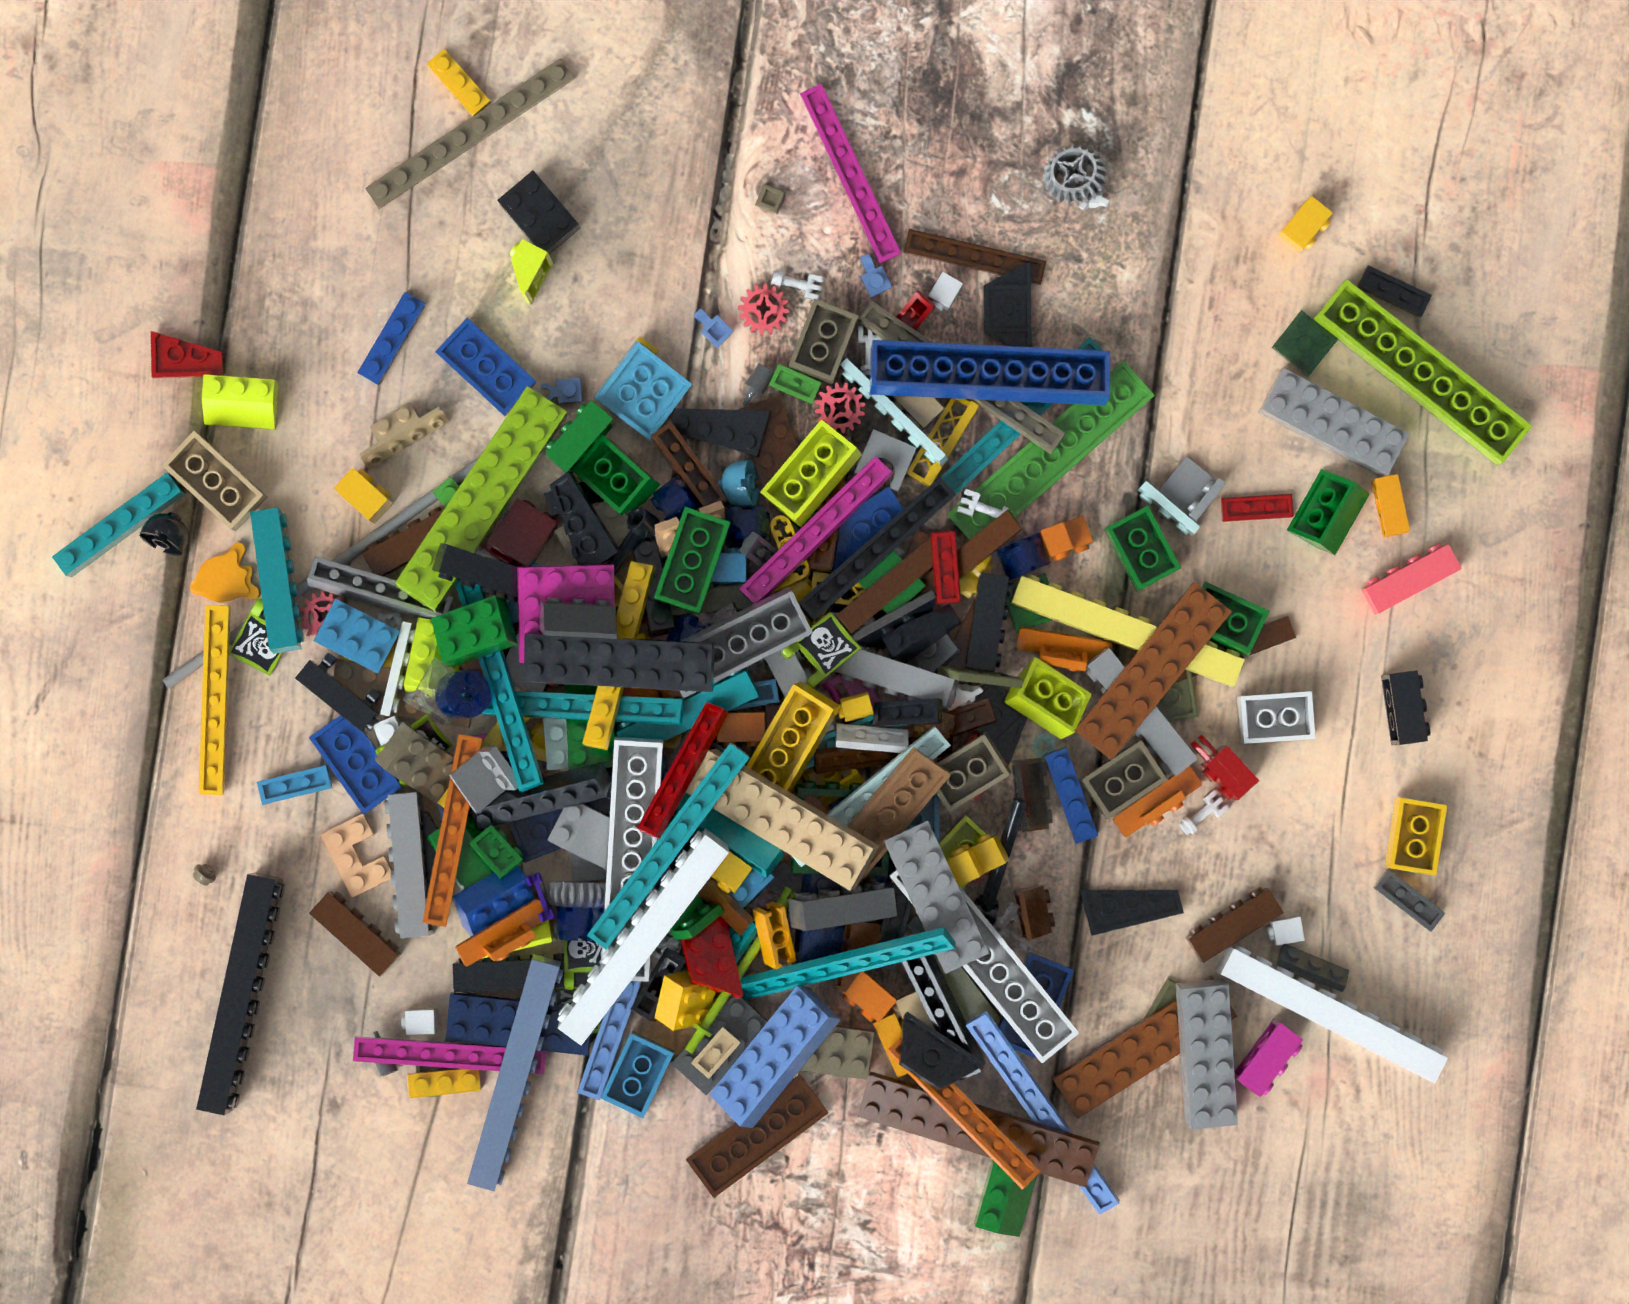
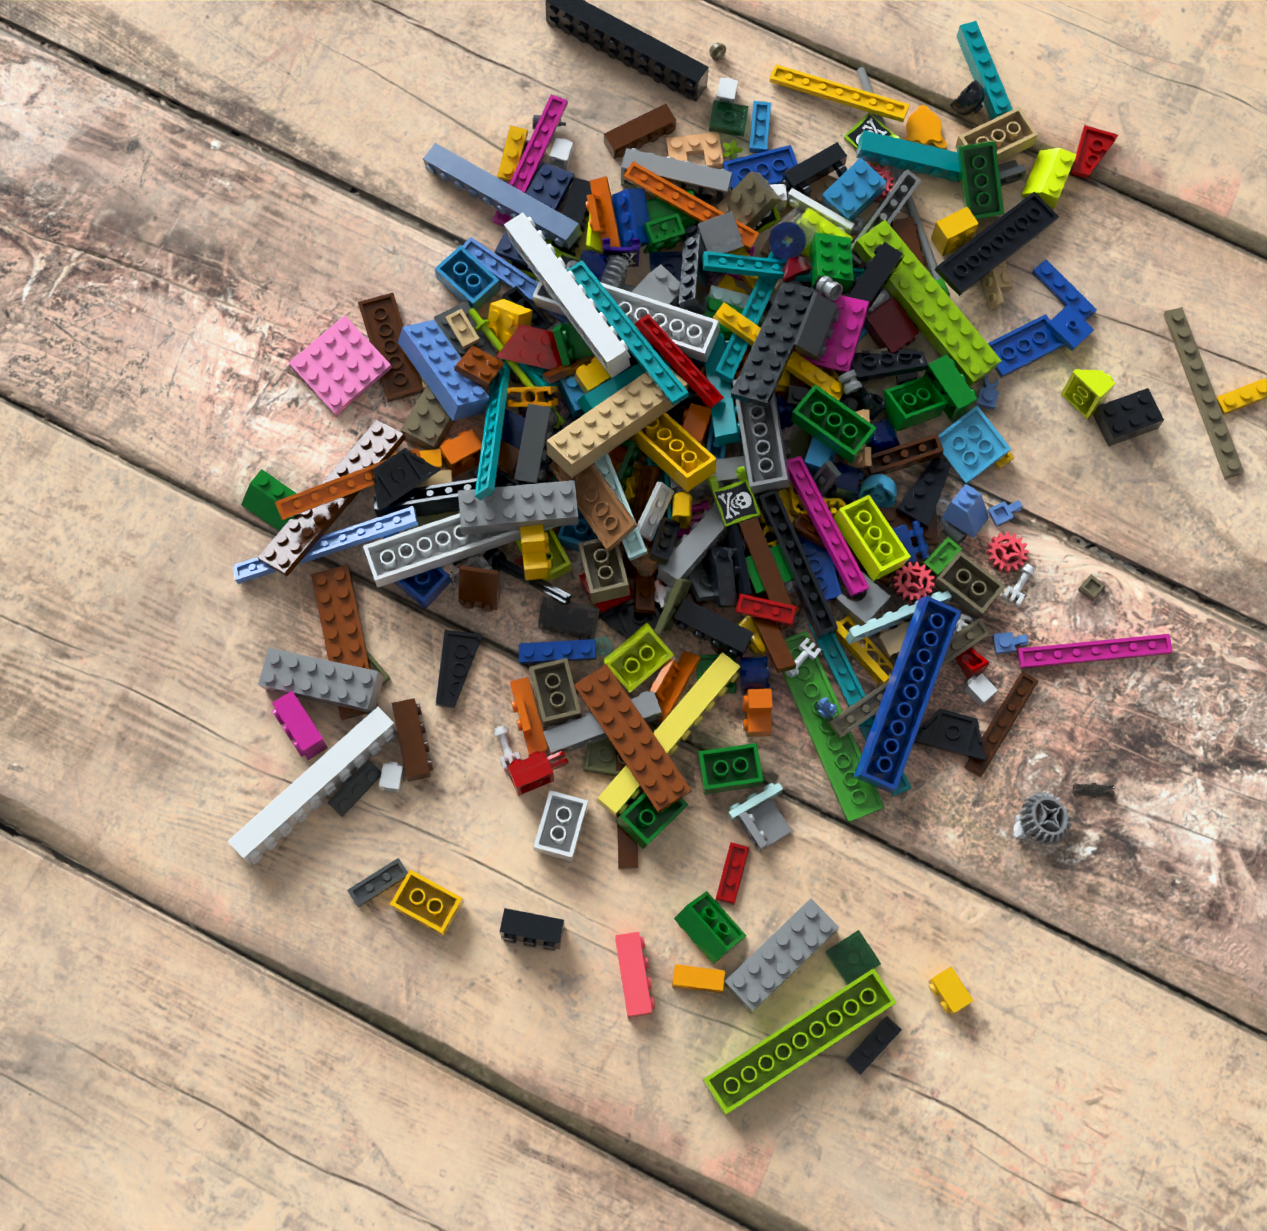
camera: 110 degrees right, 15 degrees down
(253, 459) = (1011, 172): none -> dark grey panel
(260, 842) = (727, 90): none -> white brick
(286, 483) = (980, 179): none -> green brick
(298, 828) = (728, 118): none -> clear green plate
(339, 809) = (731, 149): none -> lime plant
(365, 437) = (996, 243): none -> black plate
(443, 317) = (1069, 327): none -> blue plate
(498, 673) = (794, 267): none -> dark red slope
(518, 622) = (829, 288): none -> light grey wheel
(627, 558) = (850, 382): none -> light grey wheel
(732, 371) = (967, 511): none -> medium blue slope
(760, 1013) = (479, 366): none -> dark orange plate
(792, 437) = (904, 536): none -> blue plate
(803, 1187) = (340, 365): none -> bright pink plate
(1018, 129) = (1093, 790): none -> clear smoke pin
(1039, 461) = (826, 709): none -> medium blue plate

